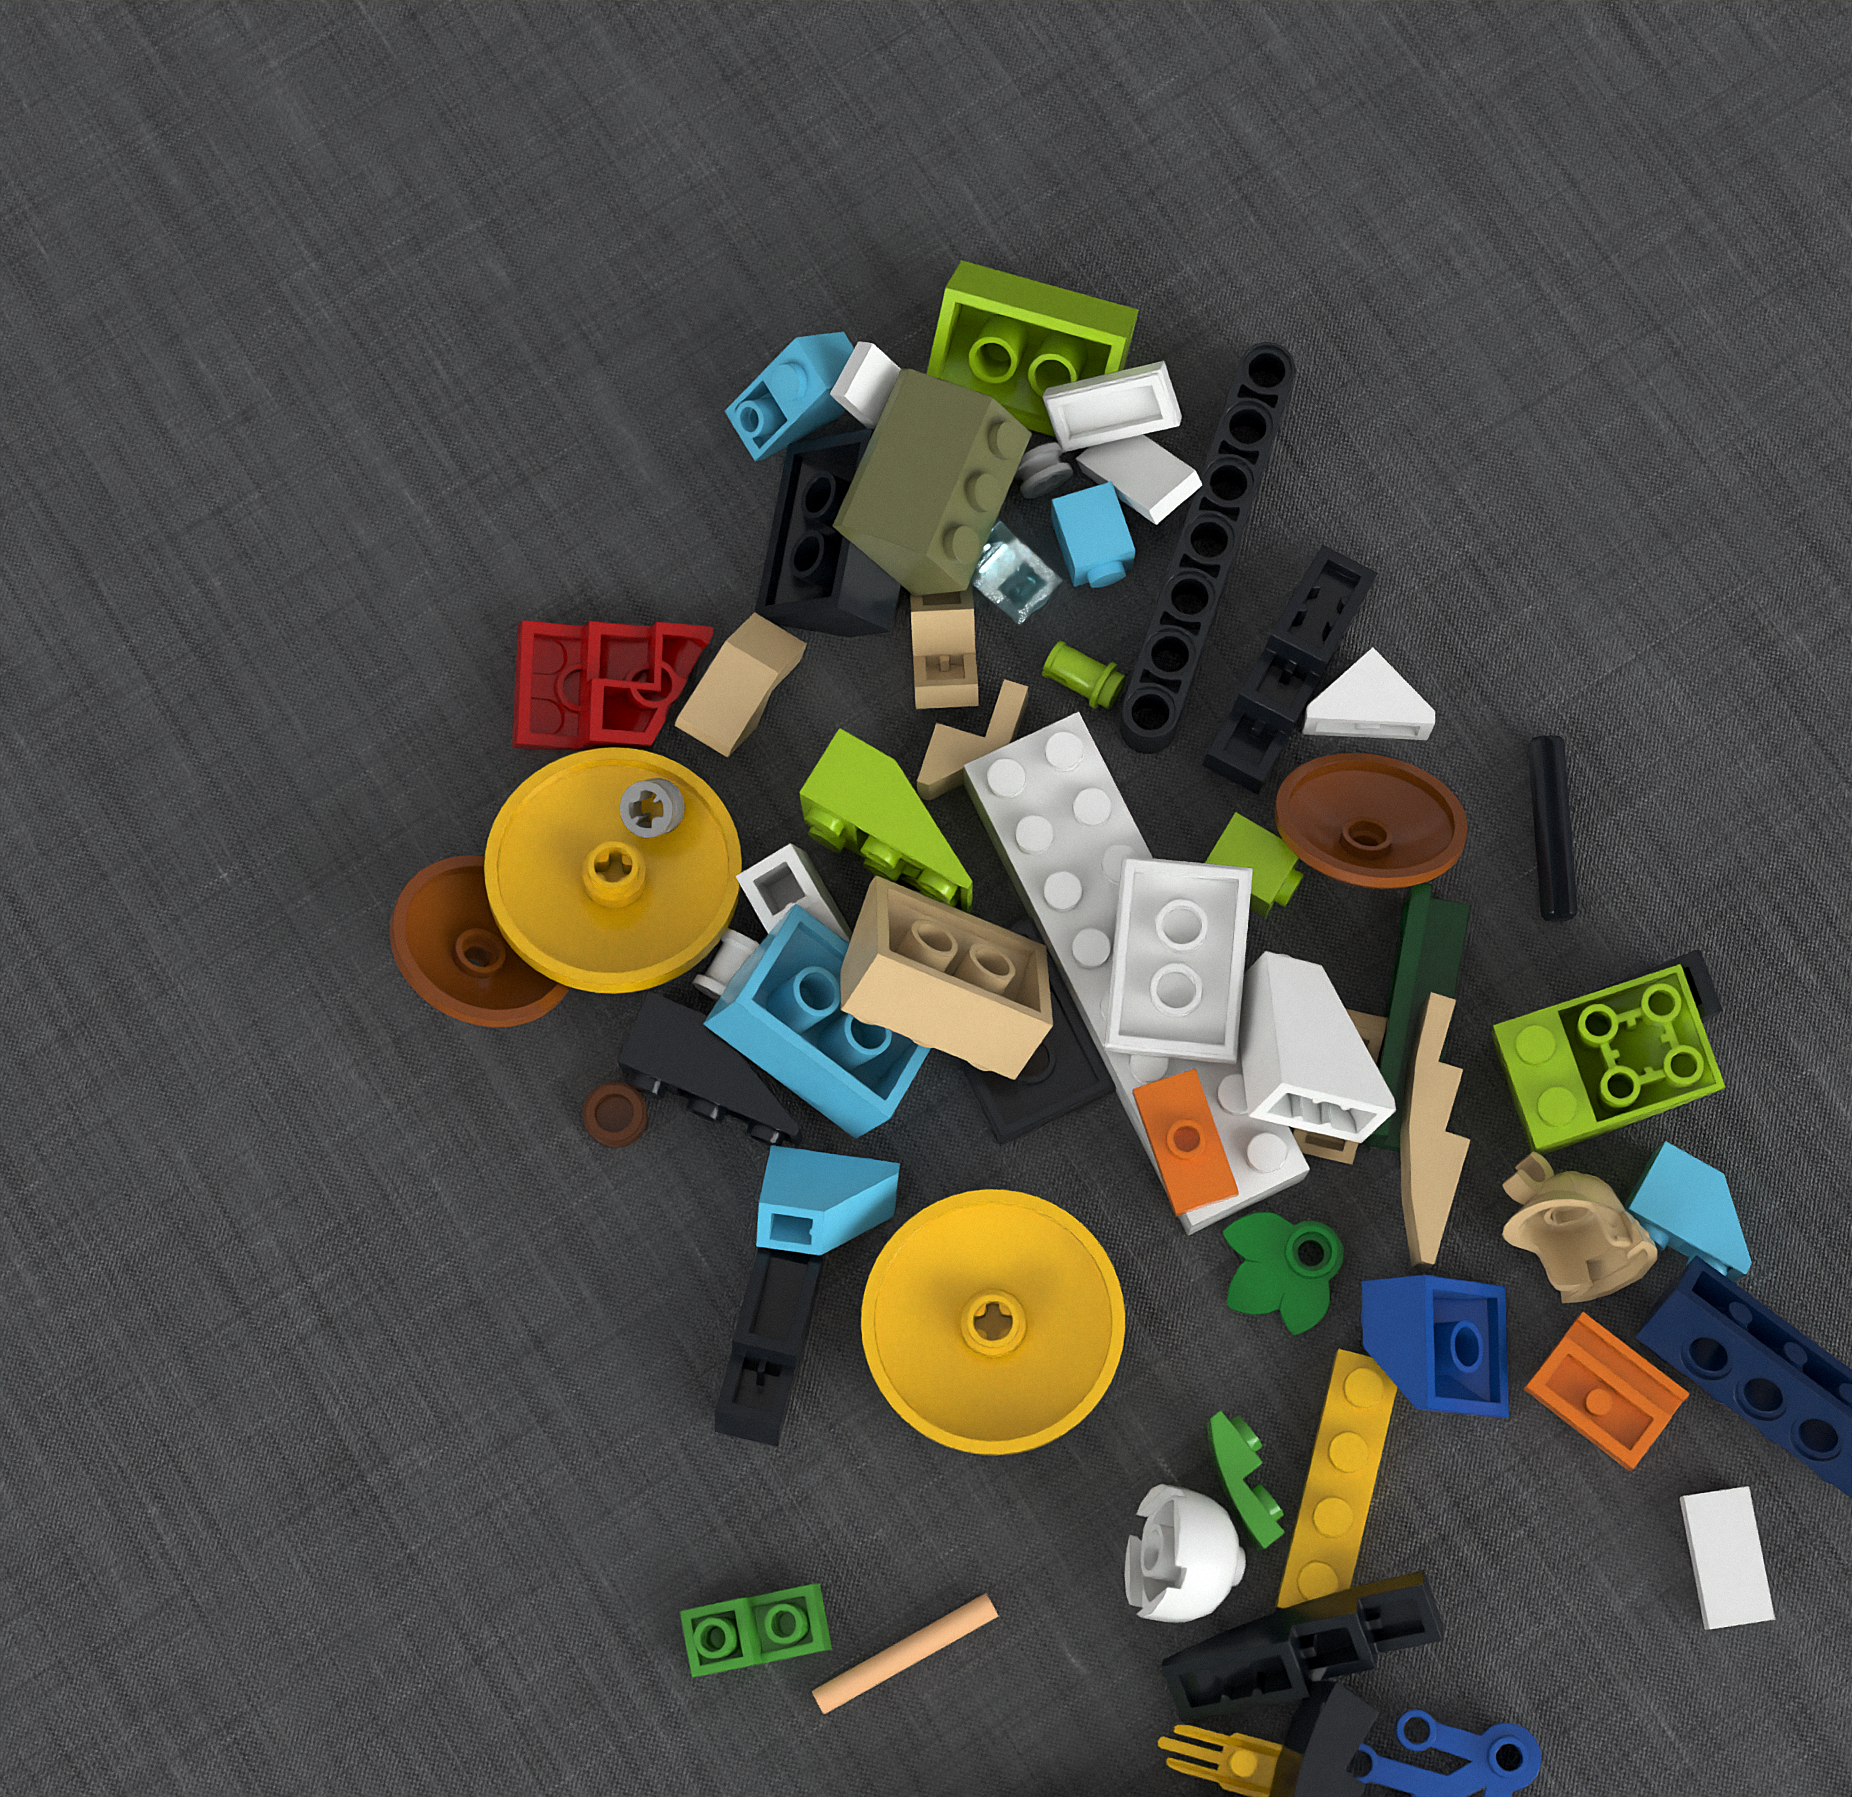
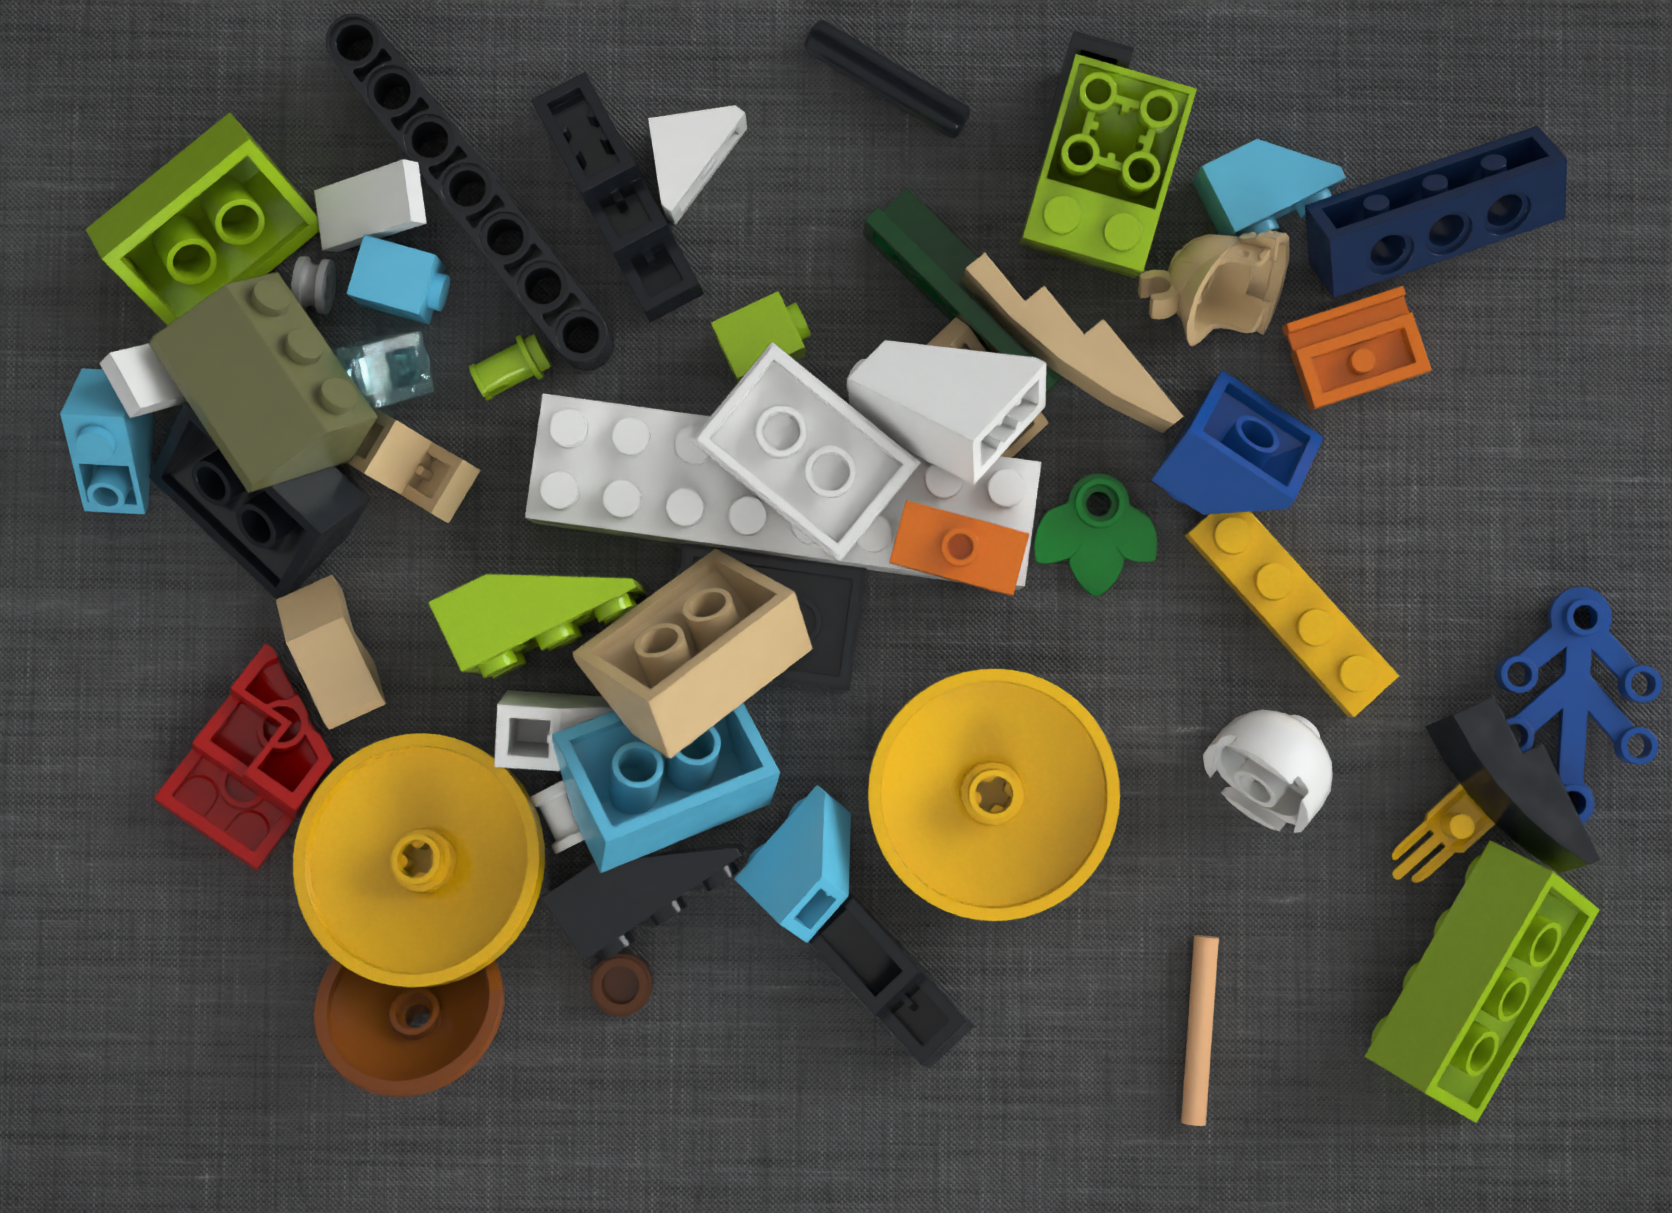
camera: 65 degrees left, 10 degrees up
(638, 822) = (393, 812): light grey bush -> none
(755, 1630) = (1106, 1136): bright green slope -> none
(953, 748) = (505, 514): tan slope -> none
(1112, 406) = (299, 189): white tile -> none
(1234, 1458) = (1228, 676): bright green slope -> none
(1307, 1642) = (1394, 733): black slope -> none
(1370, 820) = (790, 219): dark orange dish -> none
(1727, 1558) = (1539, 345): white tile -> none

